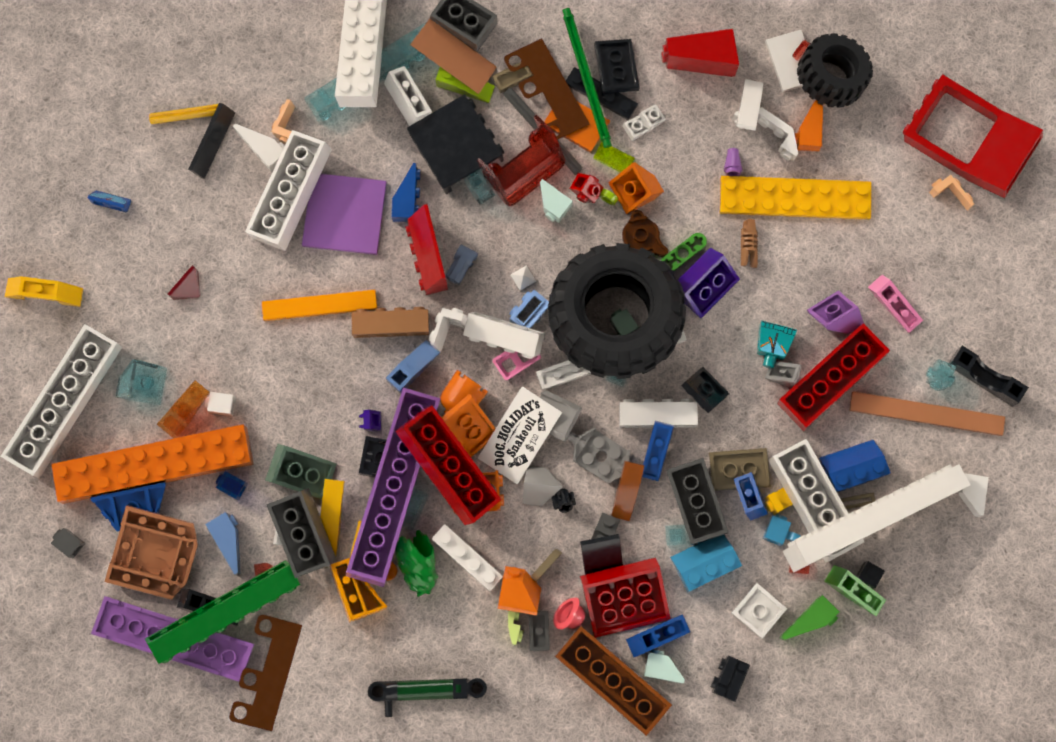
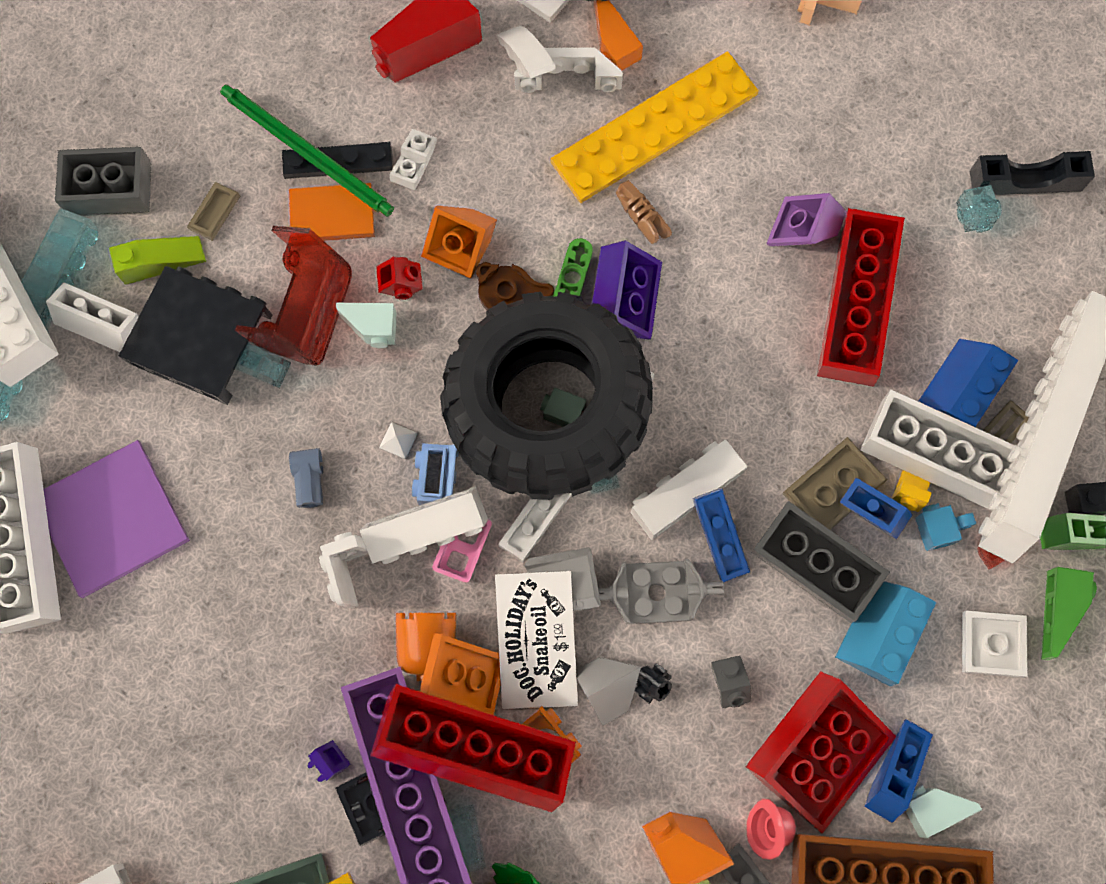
camera: 35 degrees left, 5 degrees down
(319, 305) = (154, 659): light orange tile -> none
(390, 323) = (265, 615): medium nougat brick -> none
(405, 197) = (176, 444): blue slope -> none
(412, 366) = (333, 651): medium blue slope -> none
(426, 251) = (250, 489): red slope -> none
(453, 56) = (119, 230): nougat sticker -> none
(467, 558) = (585, 853): white brick -> none
(529, 115) = (277, 245): dark grey axle -> none
(546, 565) = (692, 784): dark tan tile -> none
(553, 85) = (267, 186): reddish brown piece -> none
(601, 553) = (752, 717): black tile -> none
(608, 197) = (434, 271): lime tile -> none
(613, 158) = (405, 223): clear neon green tile -> none
(616, 66) = (333, 116): black tile -> none
(627, 490) = (723, 611): dark orange slope -> none
(675, 535) = (821, 624): clear light blue tile -> none
(705, 389) = (723, 418): black plate -> none
(730, 678) = (1028, 758): black brick -> none
(733, 163) = (553, 134): medium lavender cone -> none
(774, 342) = (759, 305): teal torso -> none
(784, 373) = (800, 333): light grey slope -> none
(895, 303) = (861, 164): bright pink slope -> none
(927, 413) = (994, 266): nougat tile -> none

